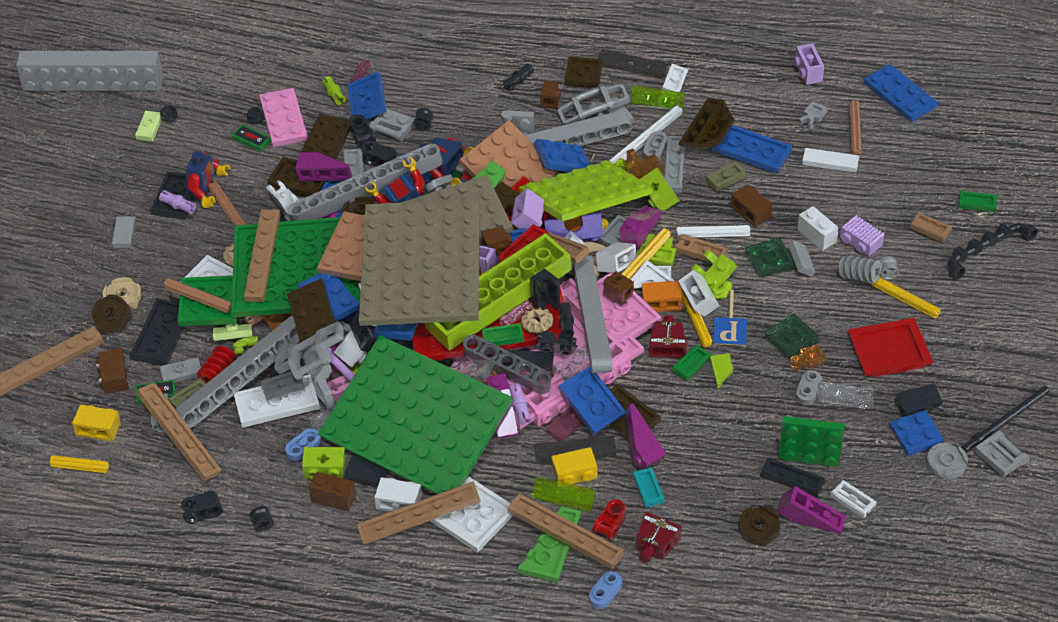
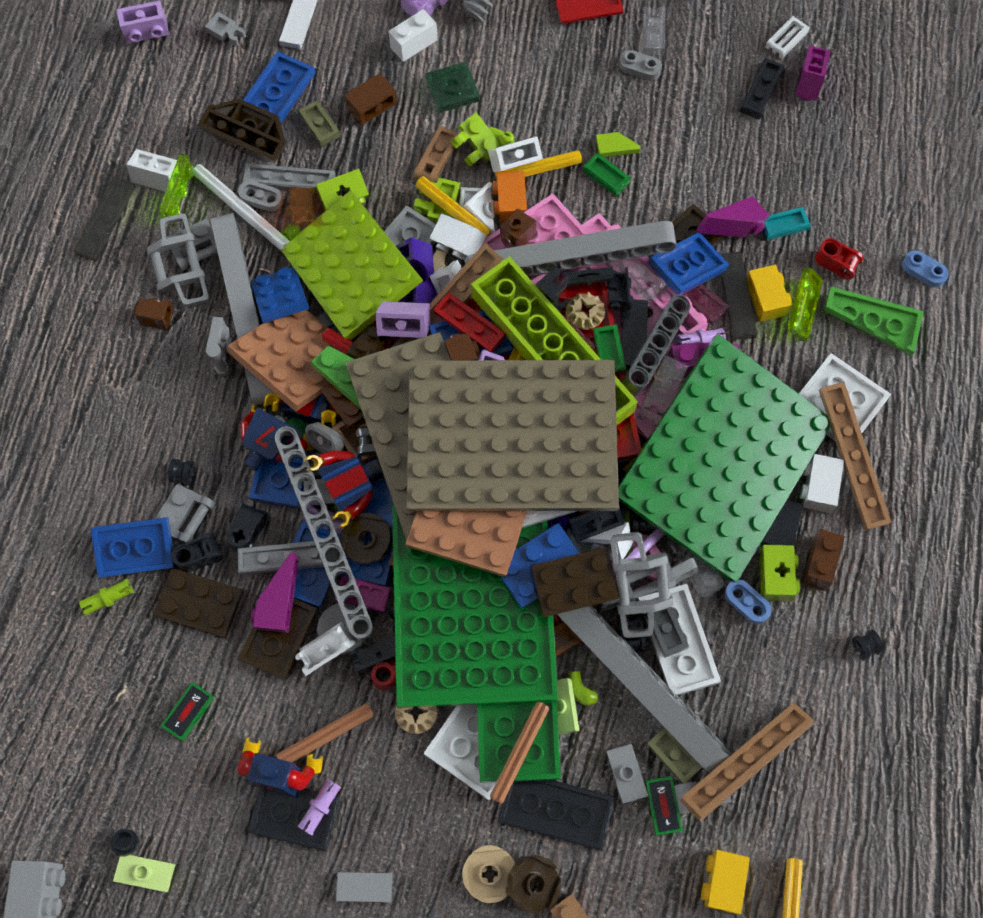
camera: 90 degrees left, 20 degrees up
(113, 371) = (635, 870): reddish brown brick -> none
(203, 506) = (854, 719): black piece -> none
(216, 363) = (626, 722): red piece -> none
(255, 115) = (142, 709): black plate -> none
(262, 256) = (460, 660): medium nougat plate -> none
(283, 117) = (148, 668): bright pink plate -> none
(361, 70) = (72, 562): clear pink axle -> none
(518, 77) = (112, 353): black pin -> none
(566, 531) = (867, 299): medium nougat plate -> none
(583, 72) = (115, 273): dark brown plate -> none
(639, 225) = (407, 208): magenta slope -> none
(656, 537) = (859, 215): dark red torso -> none
(667, 339) = (577, 192): dark red torso -> none
(714, 231) = (406, 122): white axle -> none
(730, 330) = (554, 134): blue piece -> none
(759, 535) = (830, 130): dark brown plate -> none
(791, 336) = (571, 73): clear green plate -> none
(801, 258) = (456, 56): light grey tile -> none
(810, 356) = (602, 57): clear orange plate -> none
(811, 441) = (742, 54): green plate -> none

